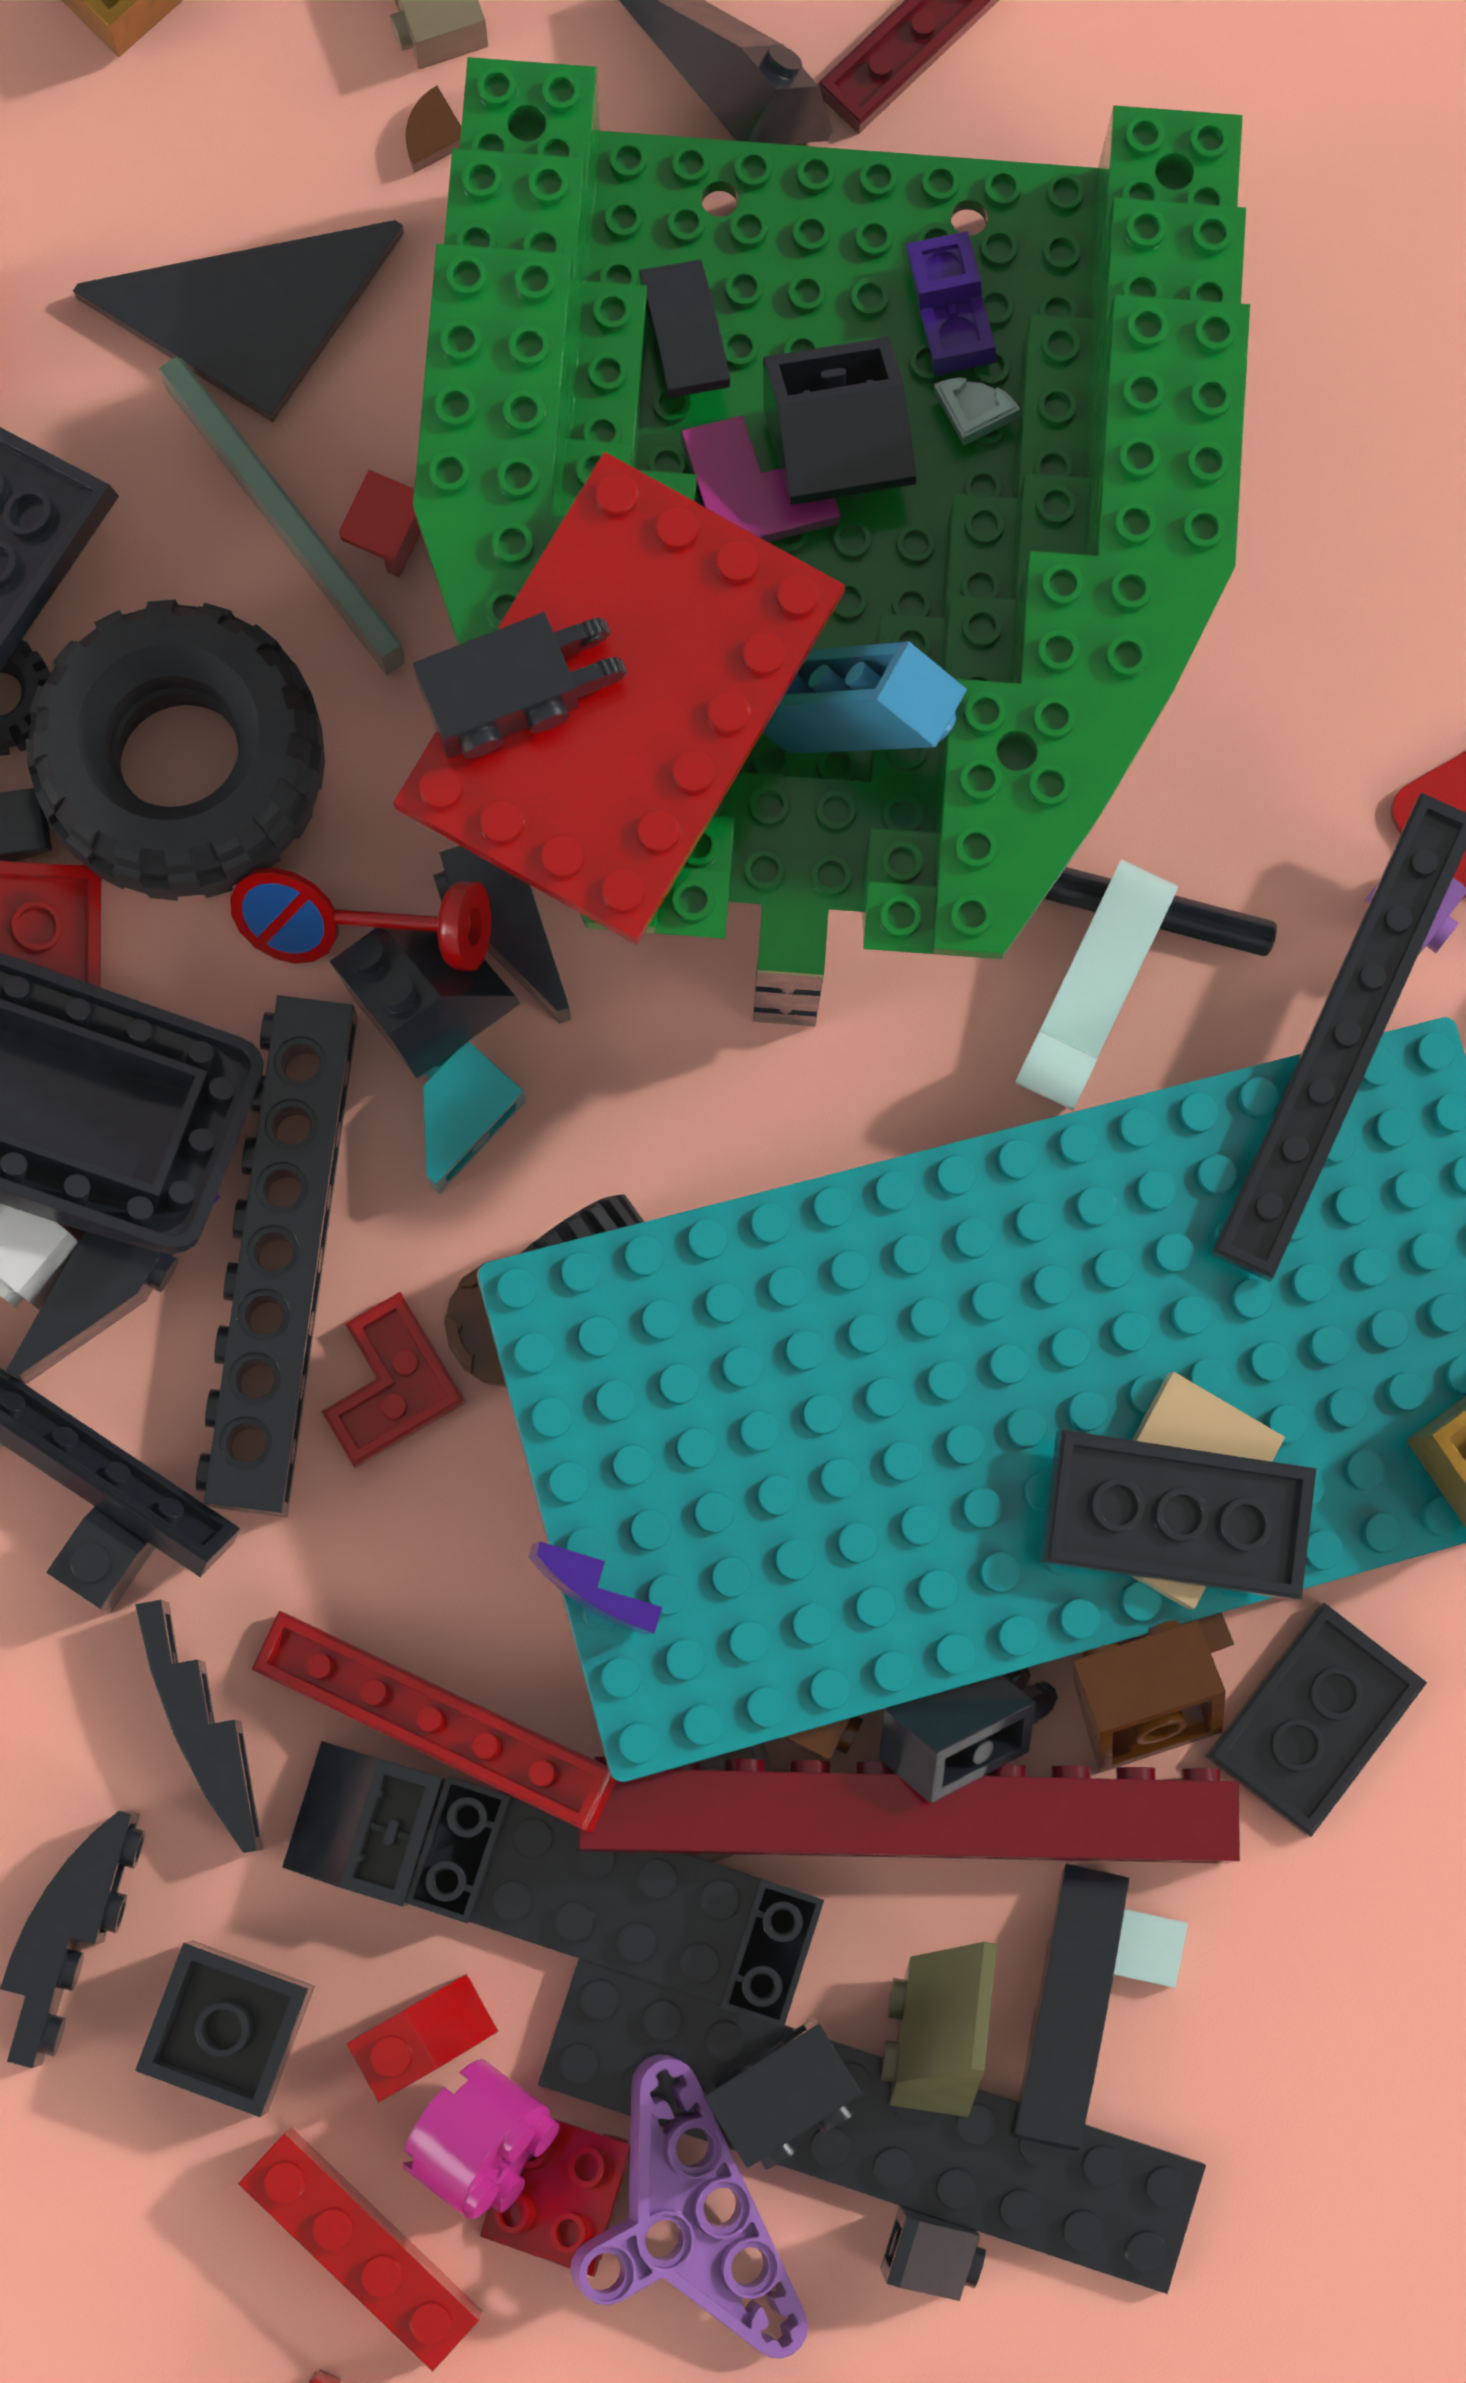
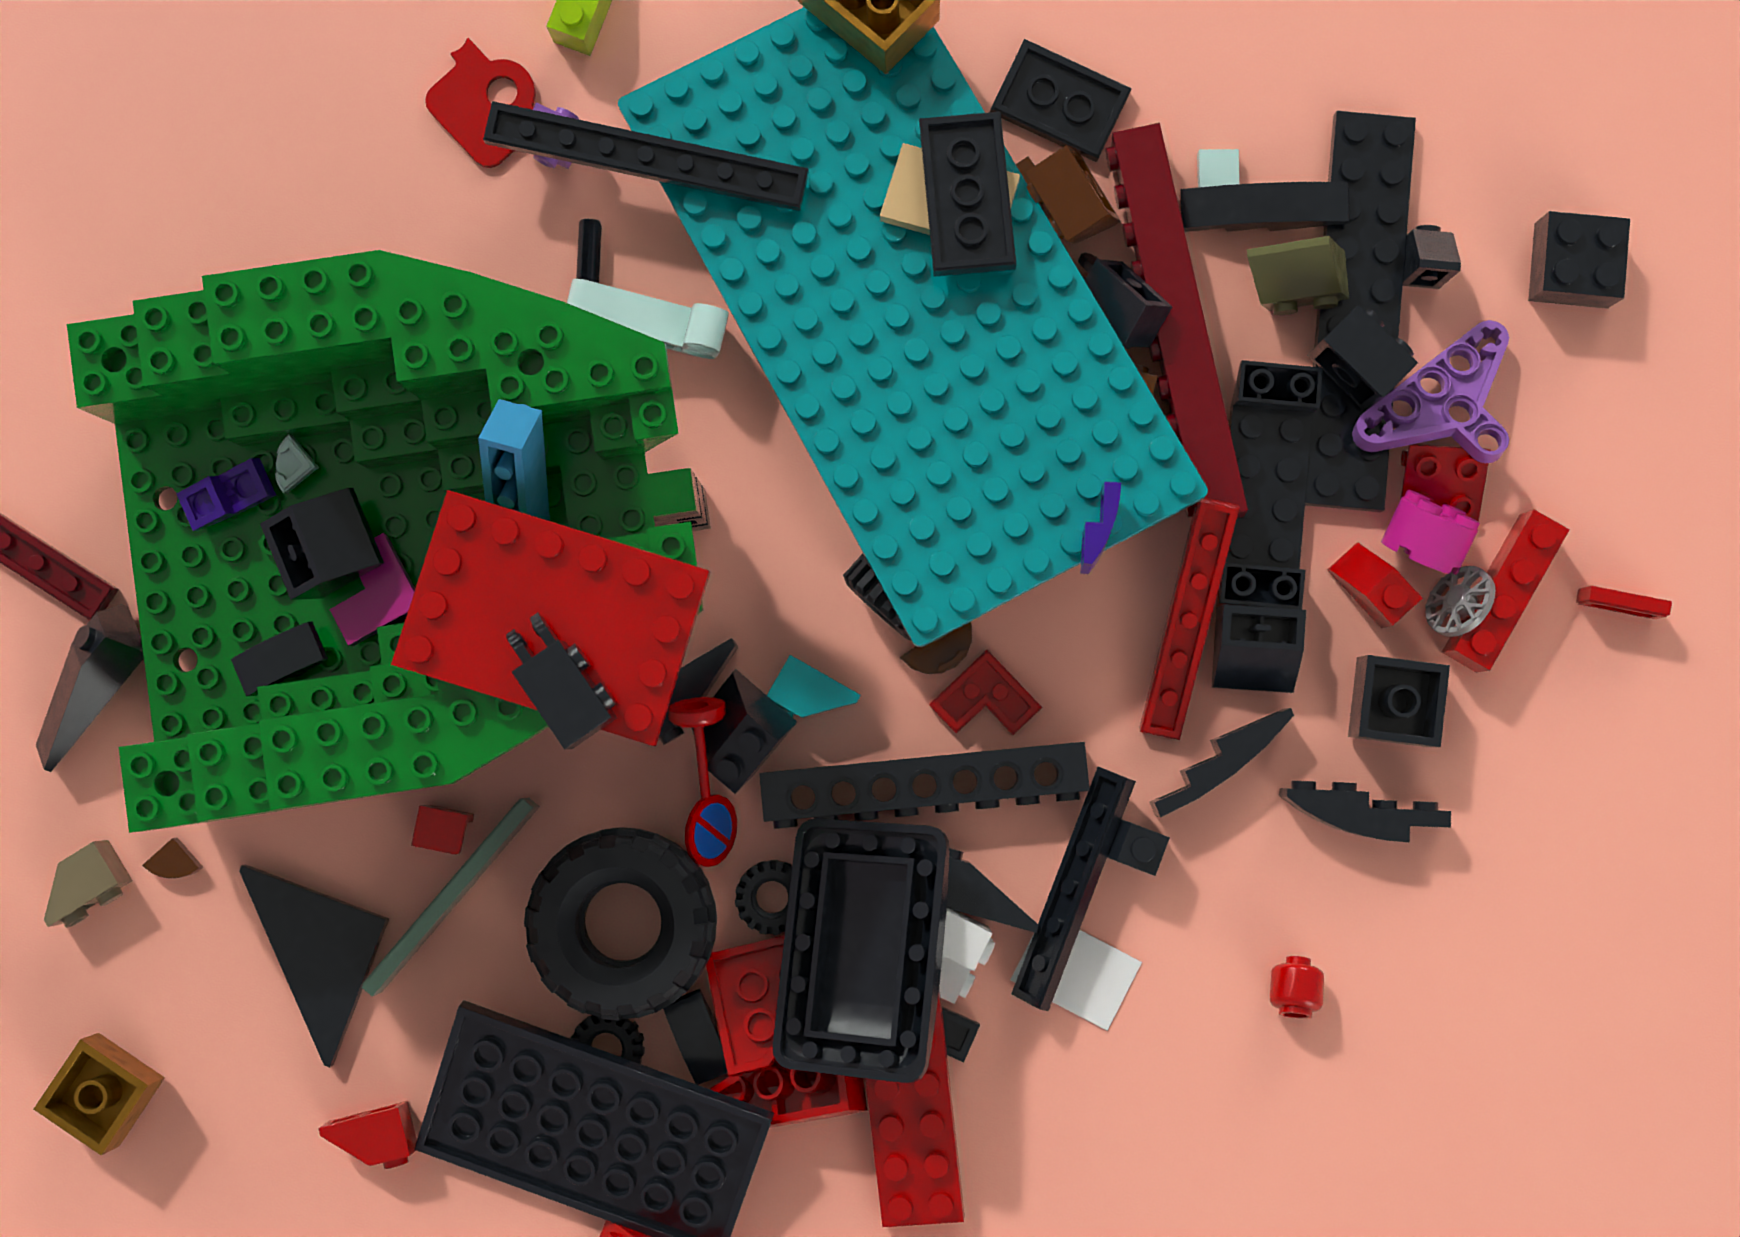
camera: 90 degrees left, 5 degrees up
(171, 950) = (747, 901): none -> black tyre
(360, 2167) = (1460, 601): none -> light grey wheel

